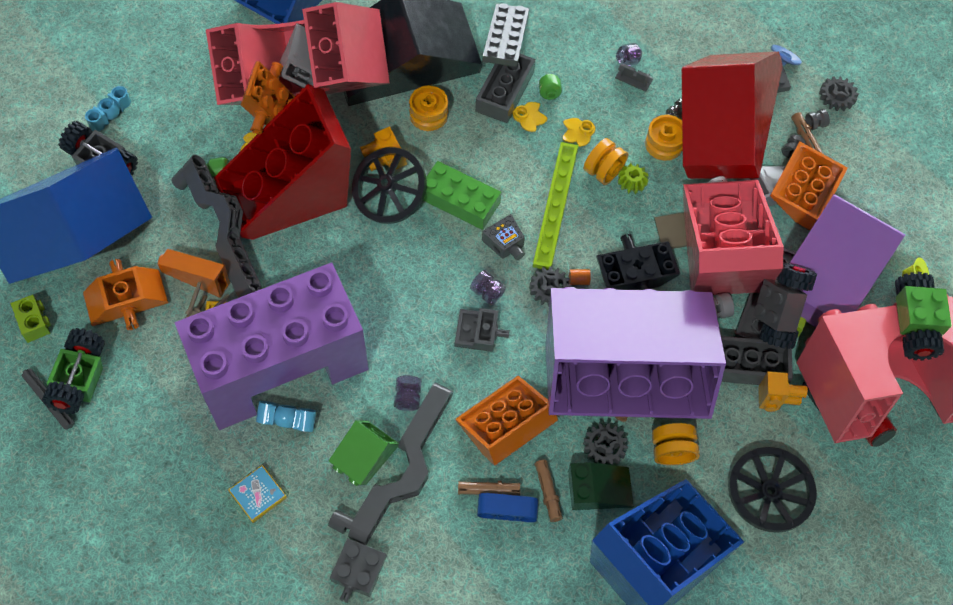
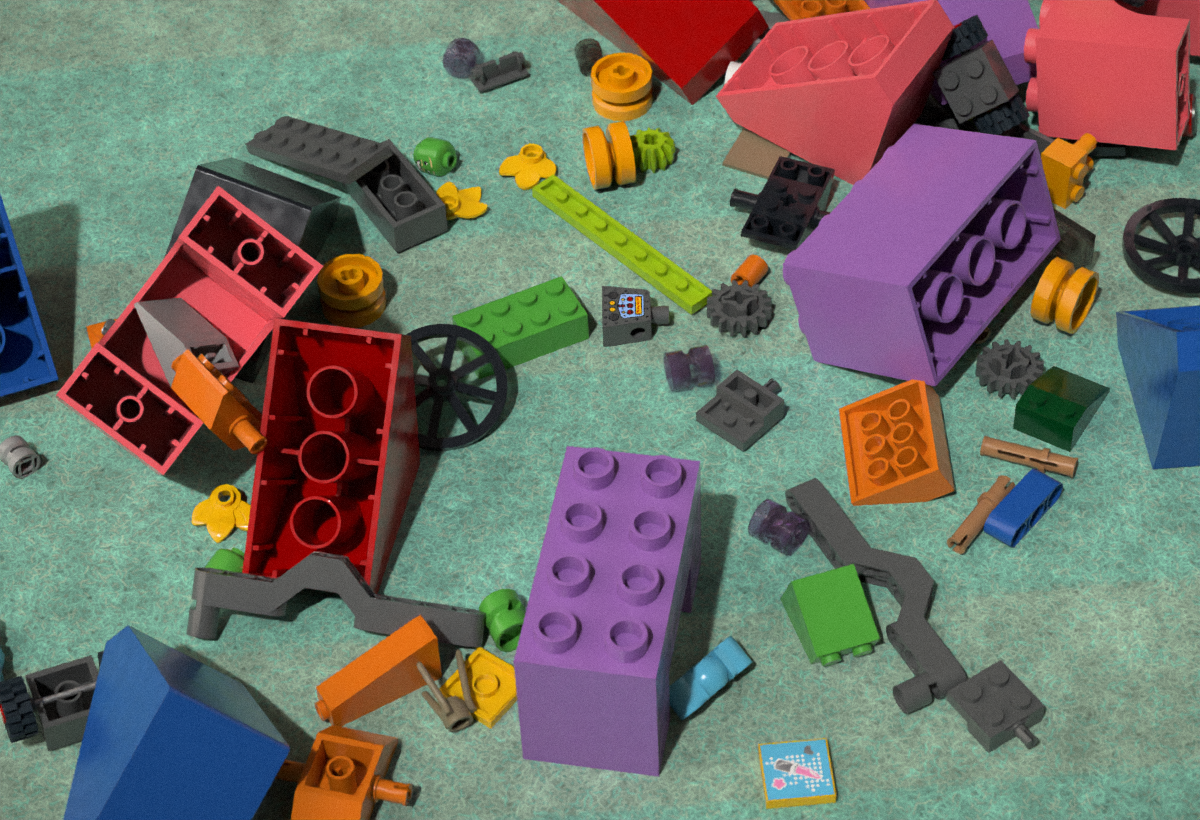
camera: 50 degrees left, 15 degrees down
(718, 423) = (1075, 243): none -> clear smoke plate

